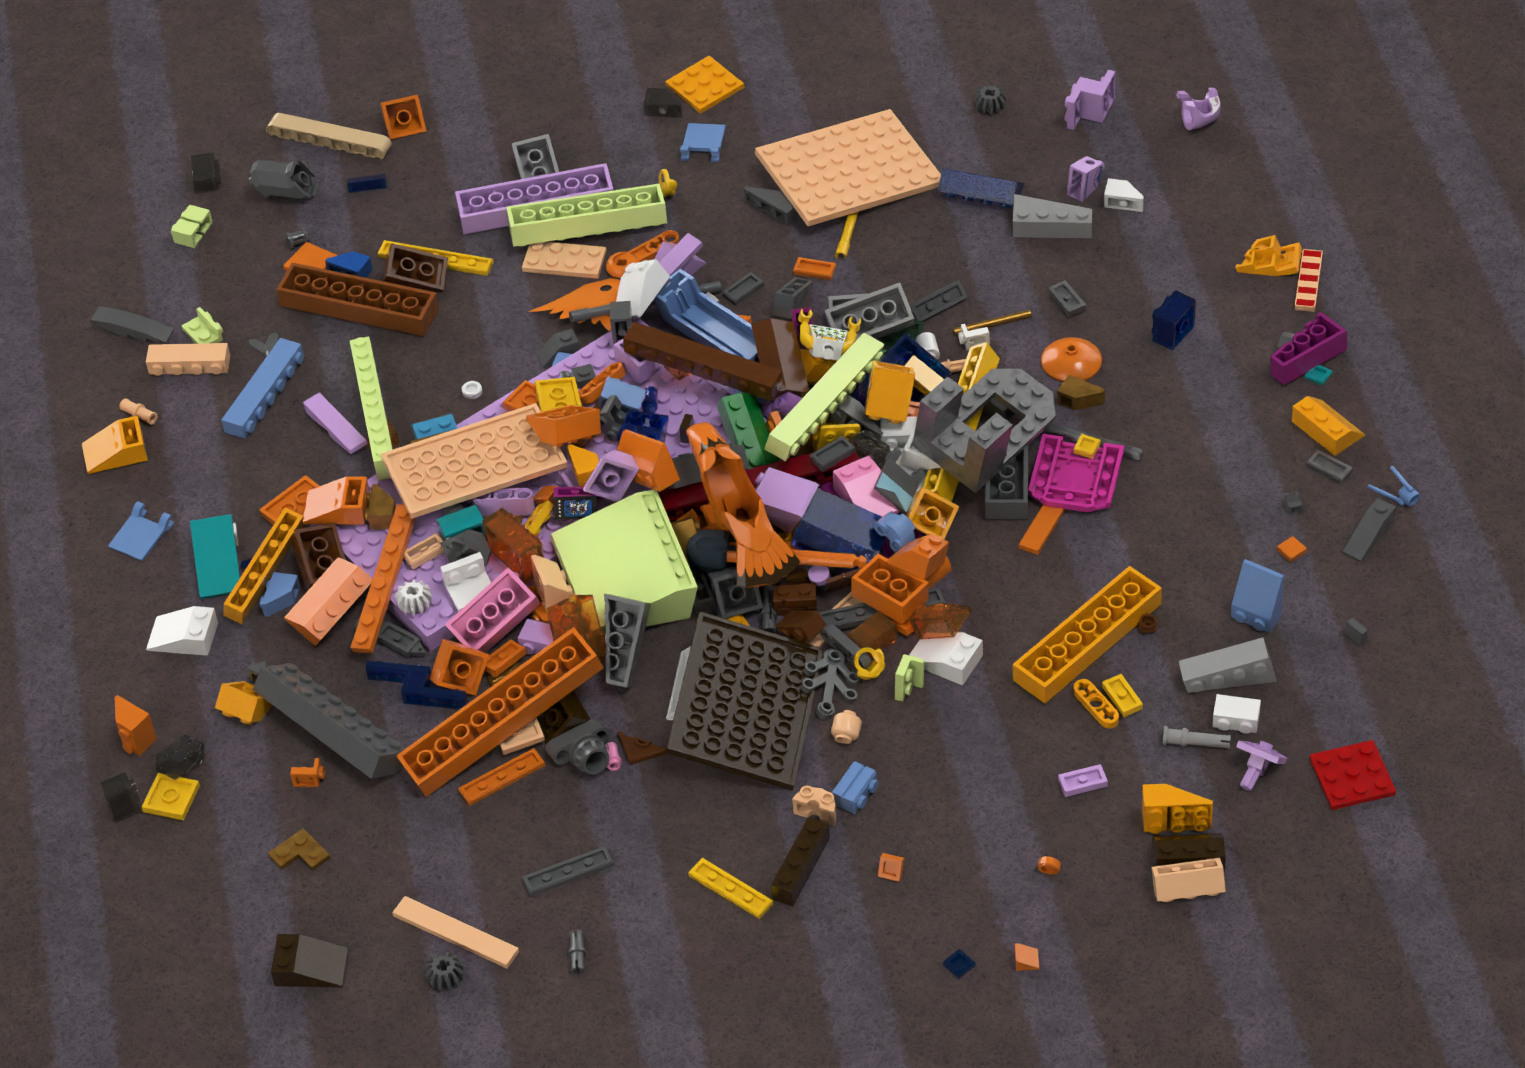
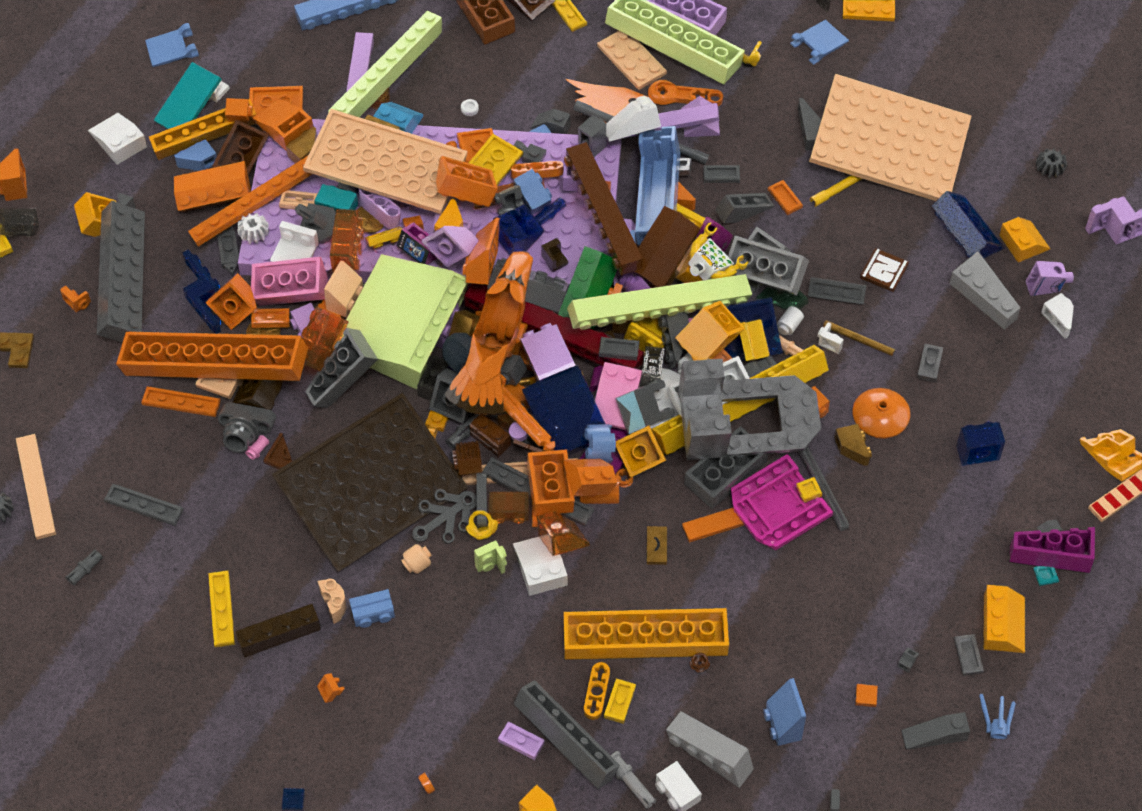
camera: 40 degrees right, 10 degrees up
(288, 520) = (238, 110): none -> orange brick
(954, 262) = (884, 270): none -> tile
(1017, 574) = (656, 545): none -> pearl gold tile
(1031, 167) = (1022, 239): none -> light orange slope
(1113, 745) = (566, 734): none -> dark grey brick

